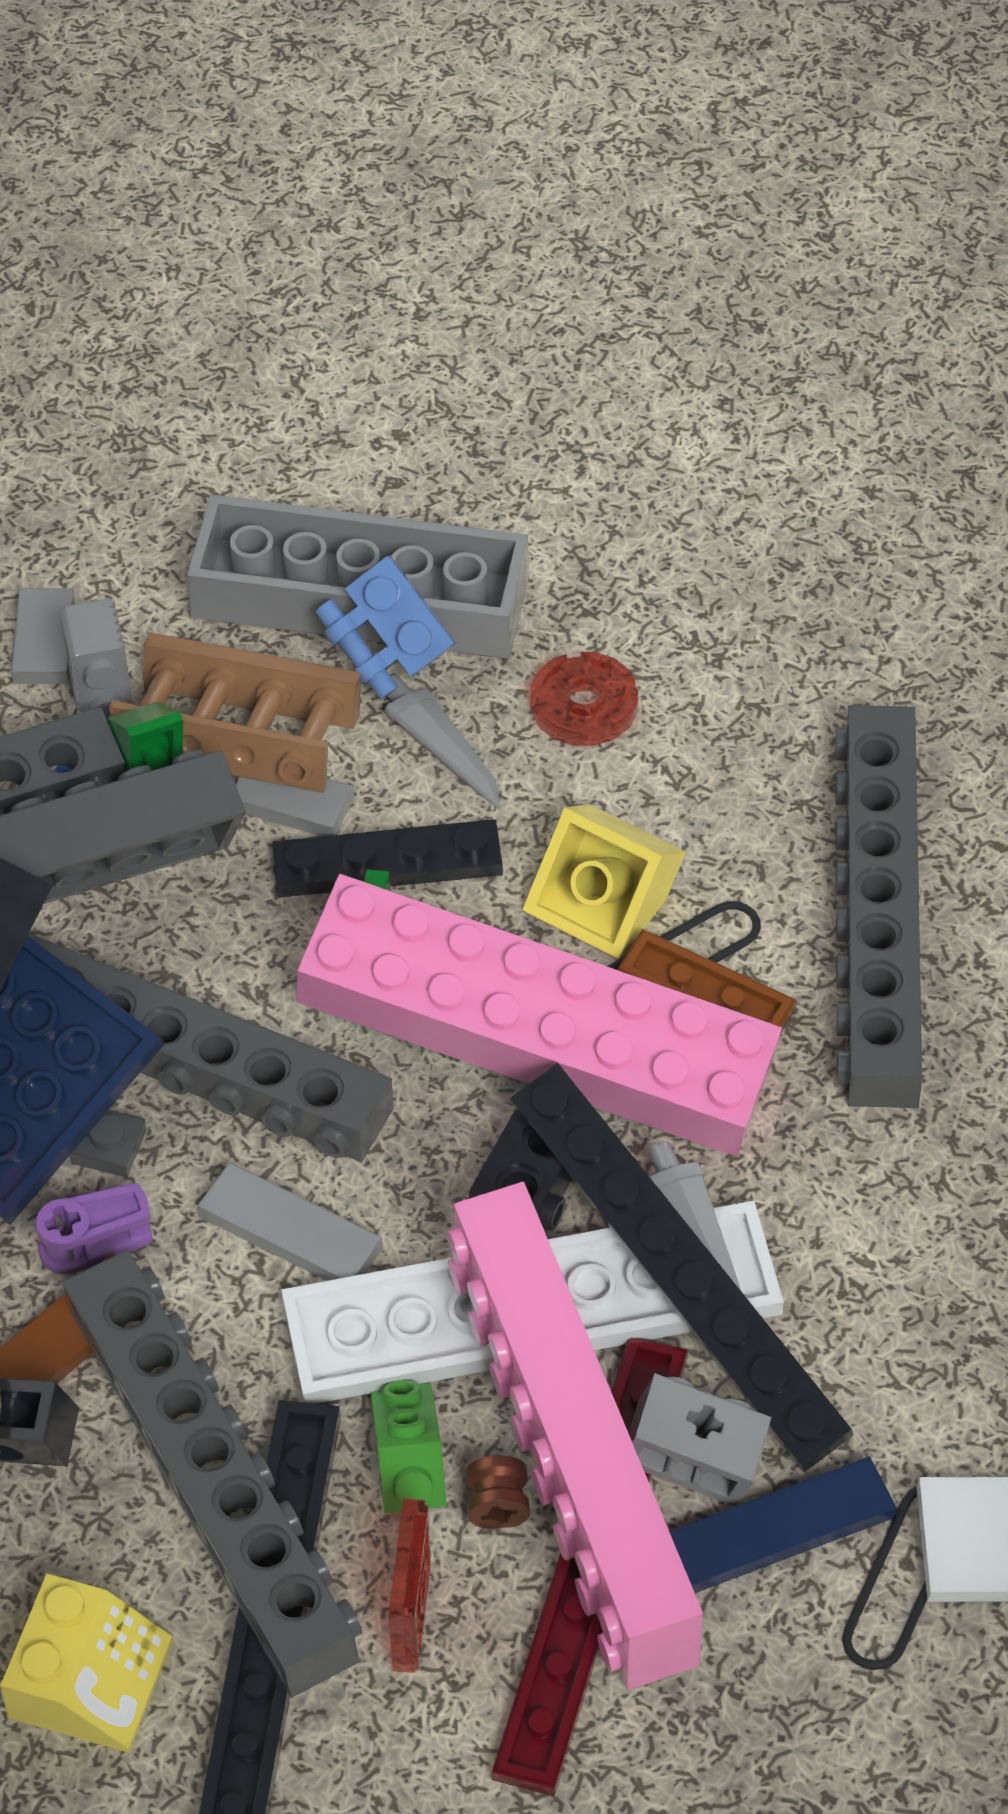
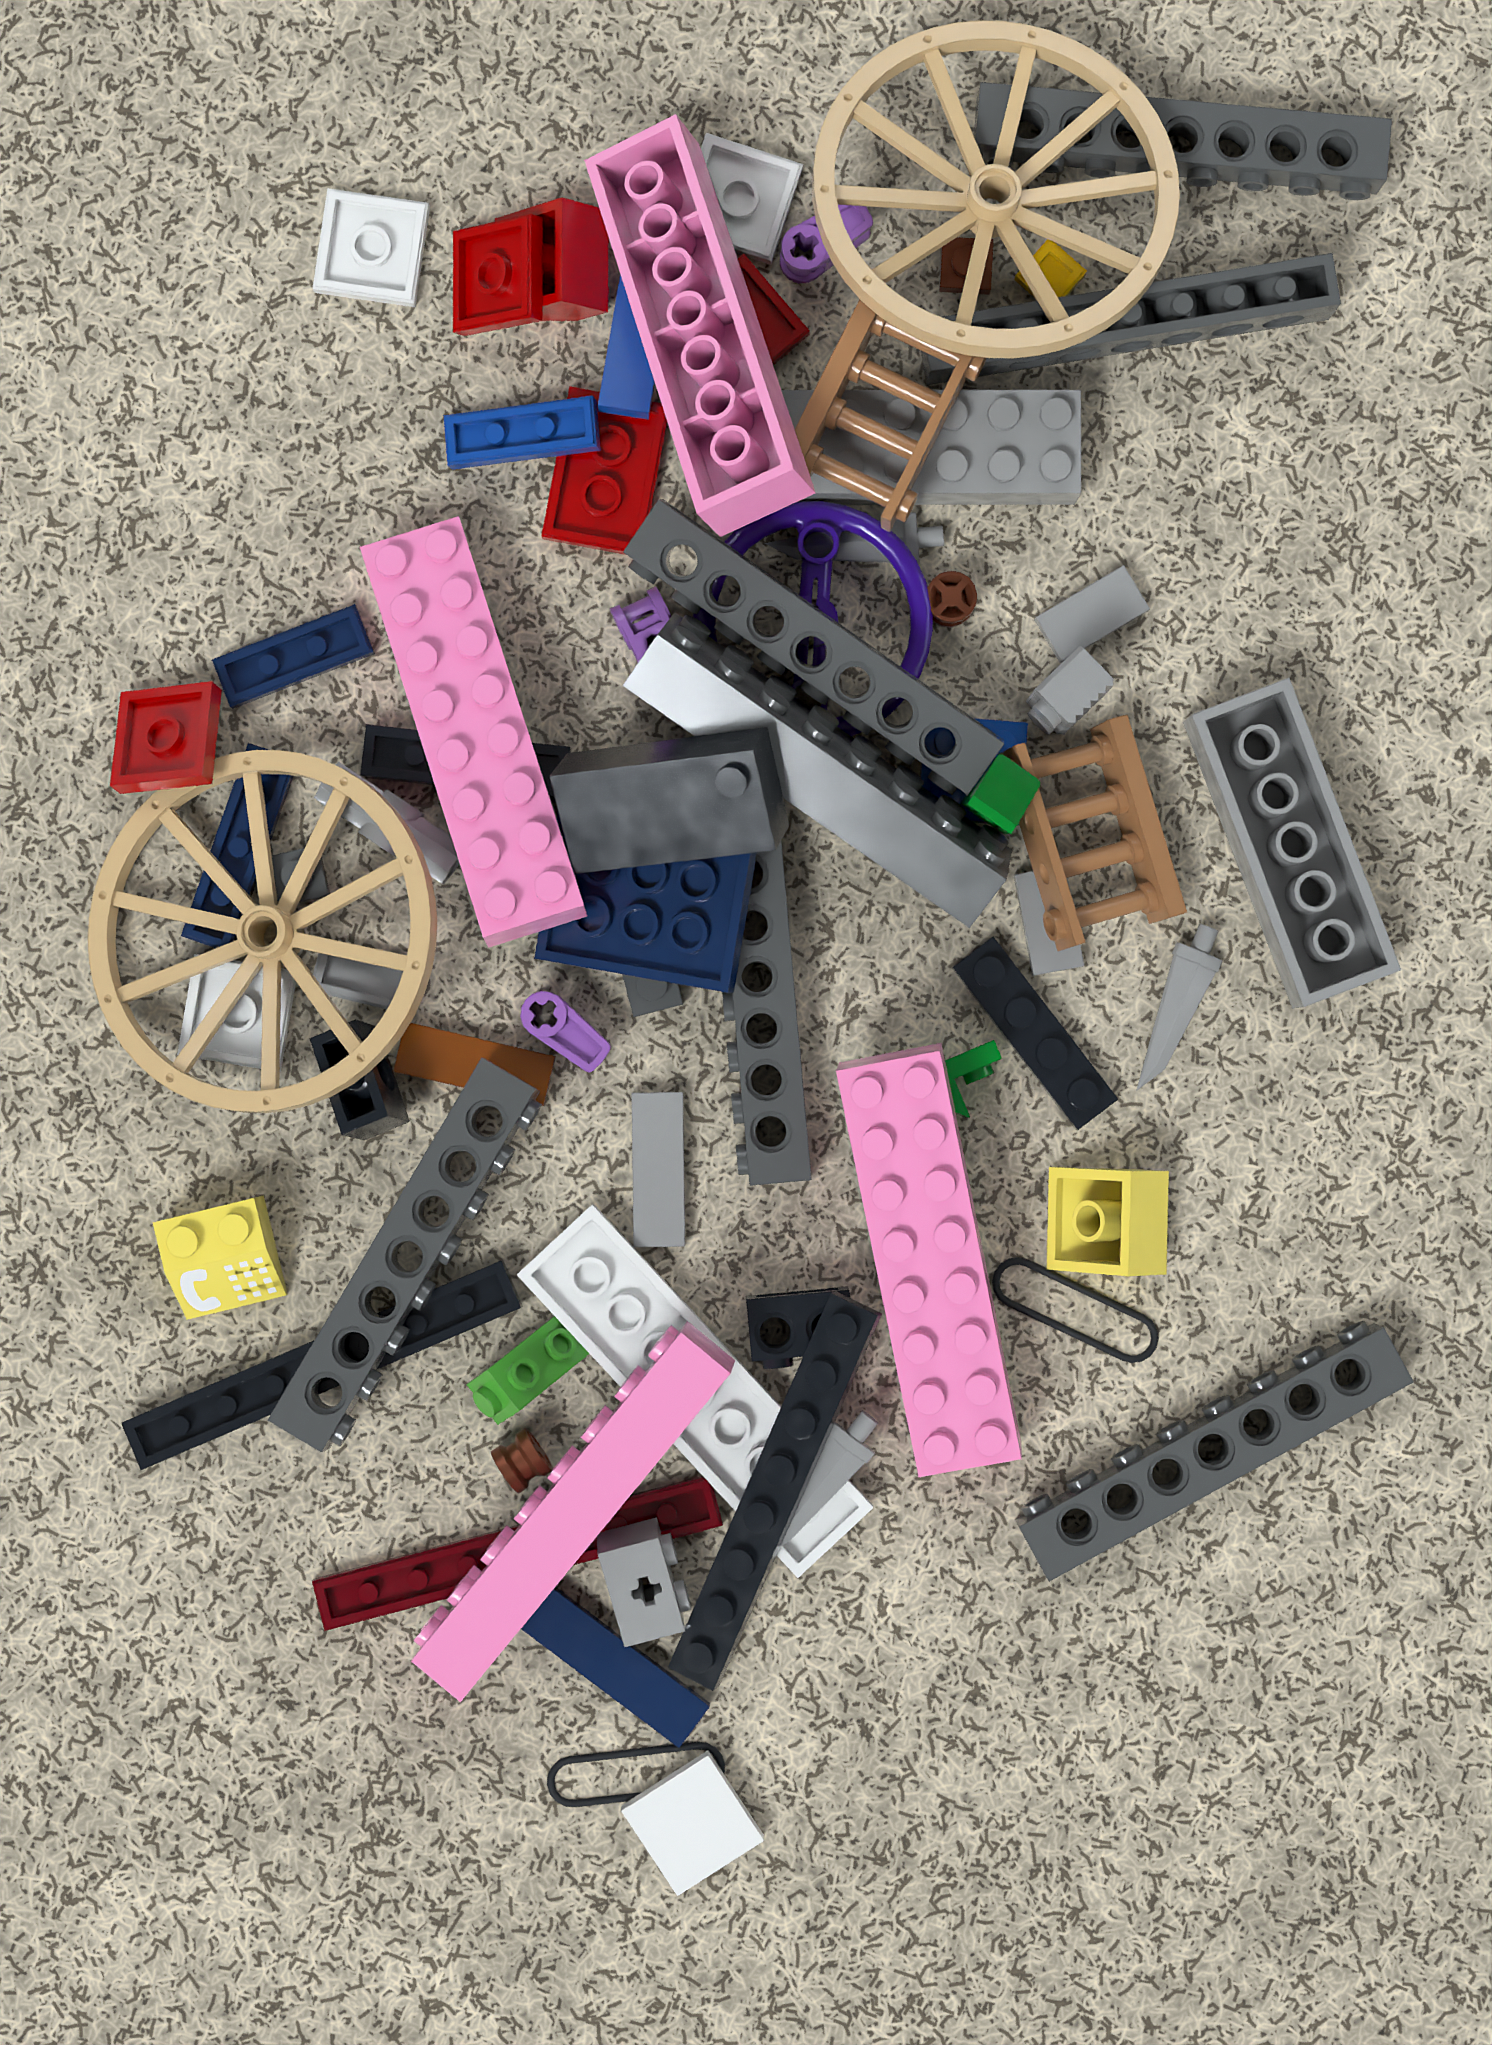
camera: 60 degrees right, 35 degrees up
(399, 617) = (1251, 915): medium blue plate -> none
(410, 1586) = (397, 1456): clear red tile -> none
(586, 723) = (1256, 1098): clear red tile -> none
(694, 975) = (1052, 1356): dark orange tile -> none

